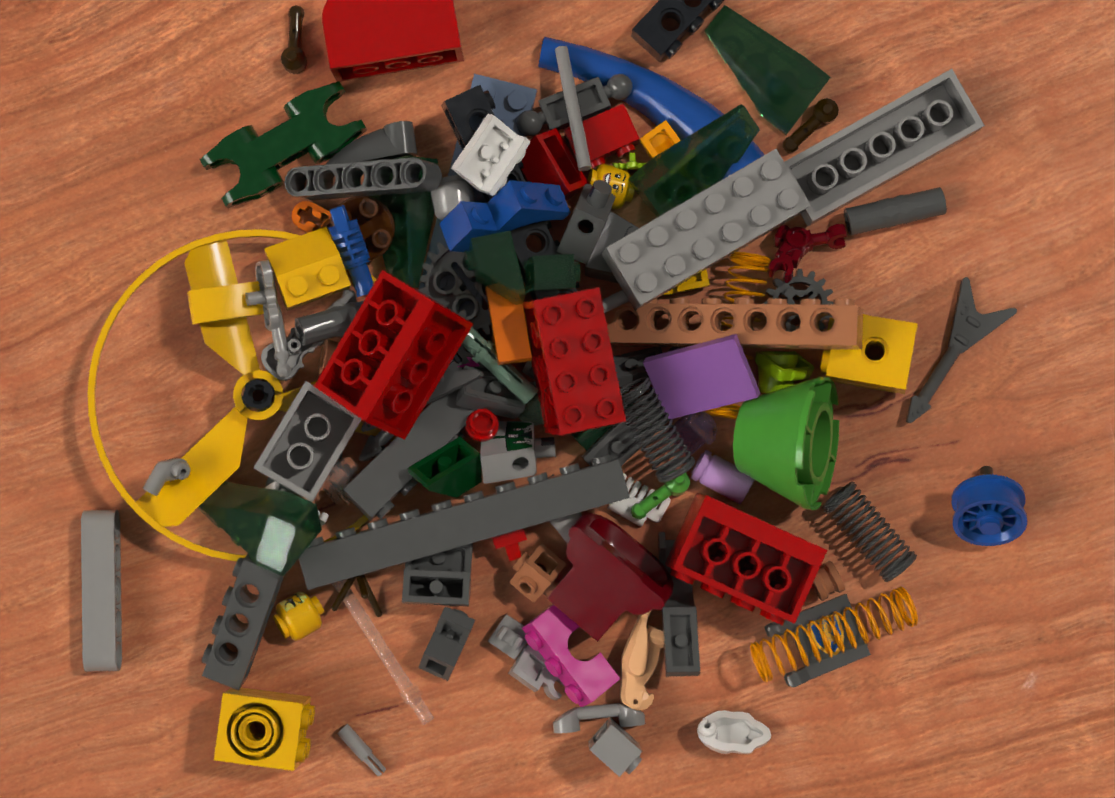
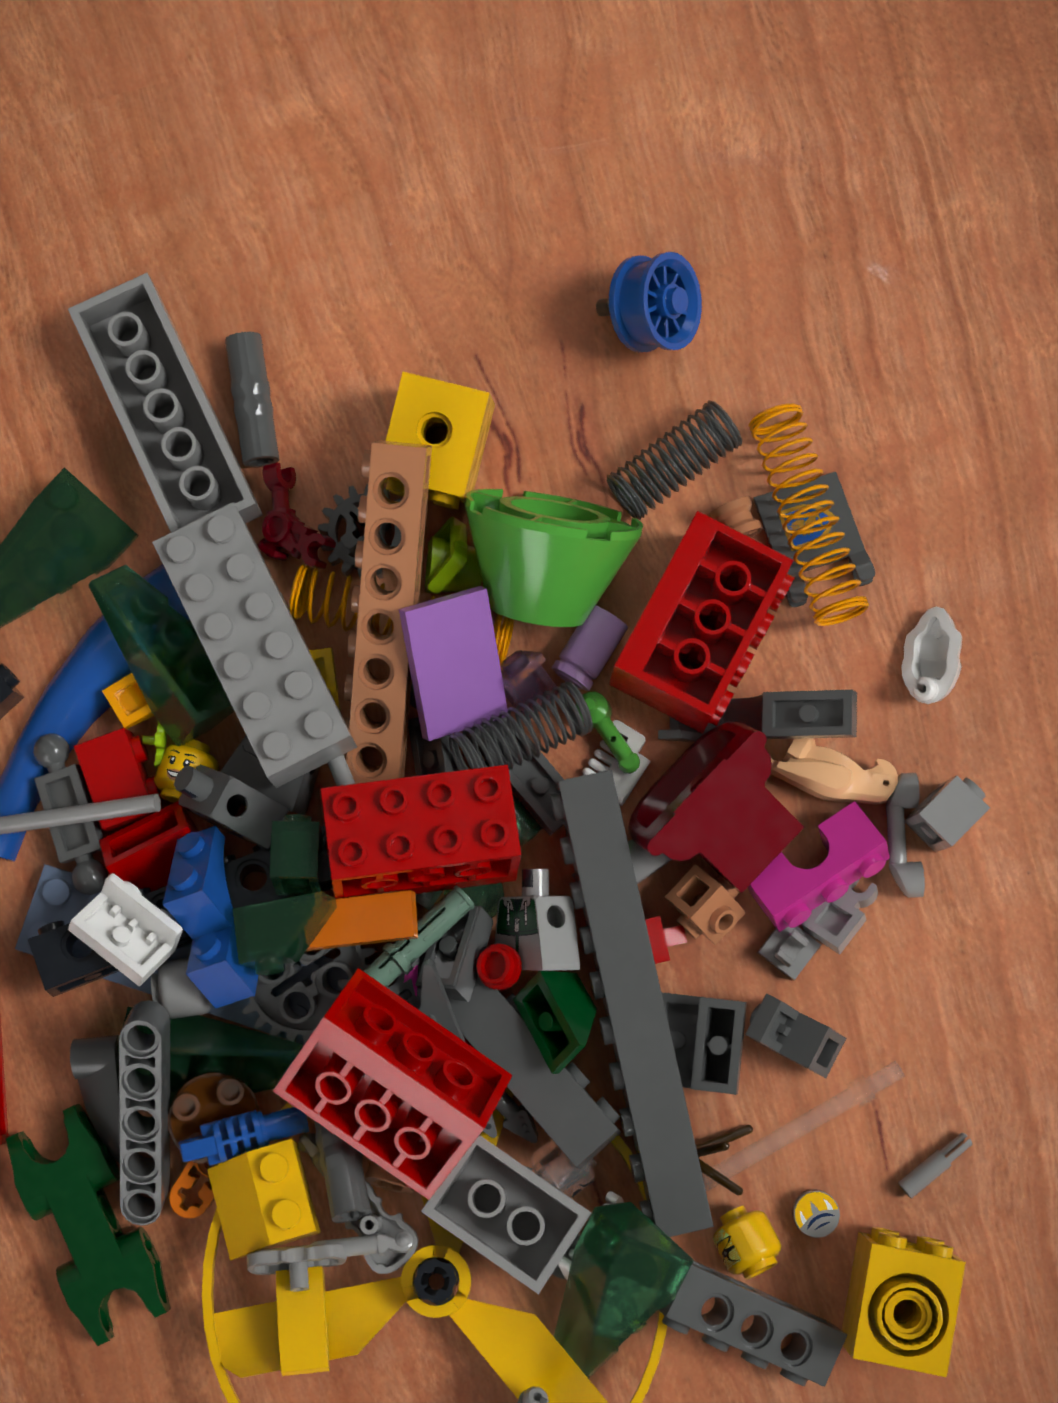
camera: 80 degrees left, 5 degrees down
(322, 665) = (816, 1213): none -> tile
(824, 113) = (114, 484): dark brown piece -> none
(966, 330) = (417, 320): dark grey piece -> none

